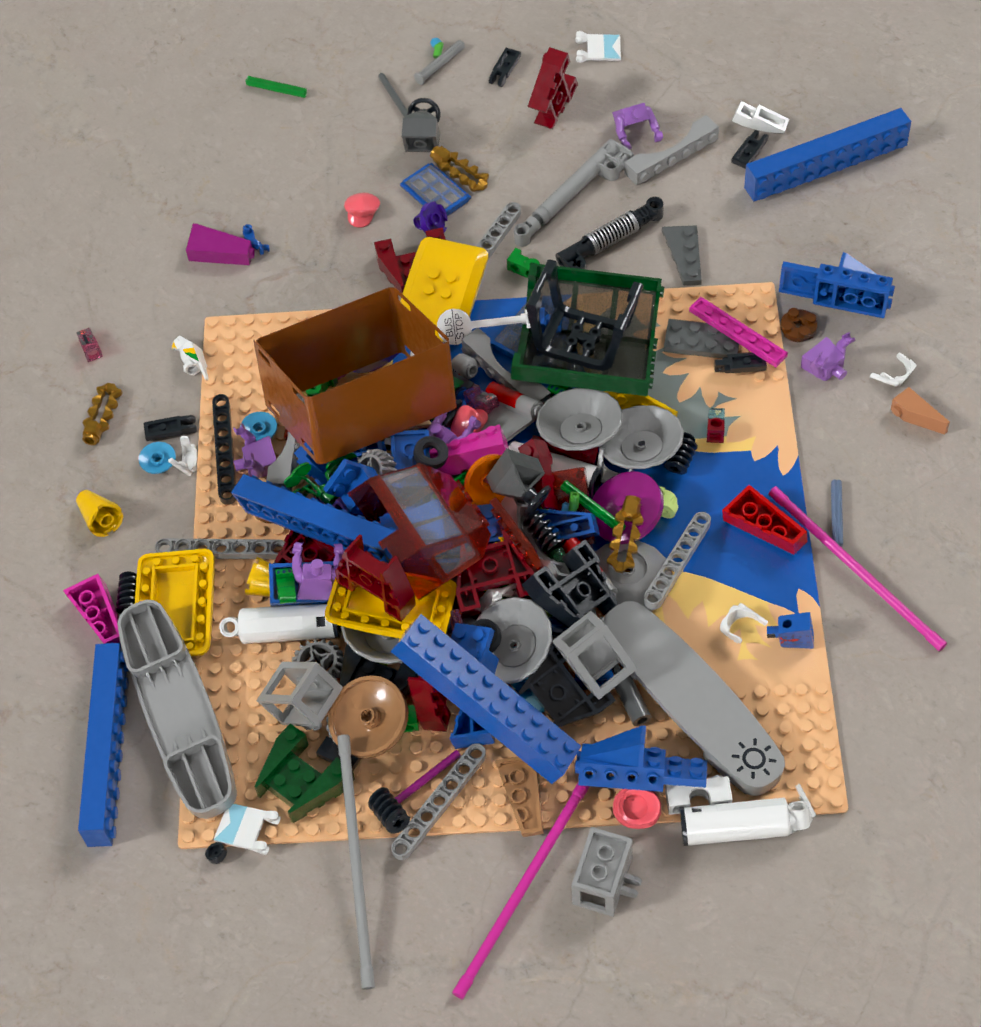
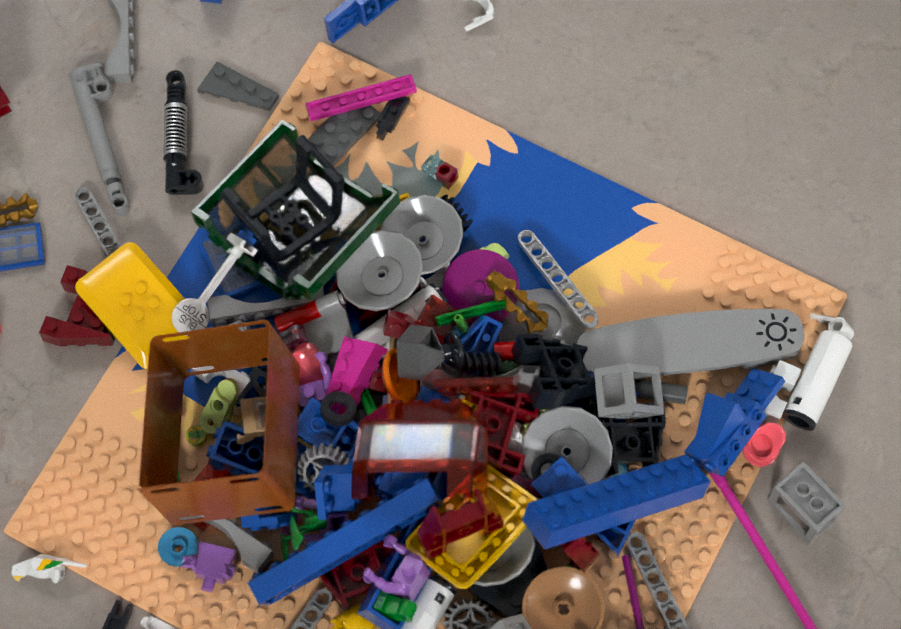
camera: 65 degrees left, 10 degrees up
(224, 441) = (184, 597): black beam -> none
(431, 217) = (45, 268): dark purple tile -> none
(519, 263) = (154, 223): green leg -> none
(523, 793) = (697, 525): medium nougat wing -> none
(633, 115) = (59, 37): medium lavender torso -> none
(735, 613) = (631, 261): white helmet -> none
(764, 520) = (561, 191): red wedge -> none
(793, 631) = (678, 233): blue torso -> none
(798, 316) = (378, 40): reddish brown plate -> none
(827, 359) = (430, 49): medium lavender torso -> none
(836, 510) = (581, 137): sand blue axle -> none
(917, 411) = (525, 19): nougat slope -> none
(930, 635) = (547, 167): dark pink piece -> none

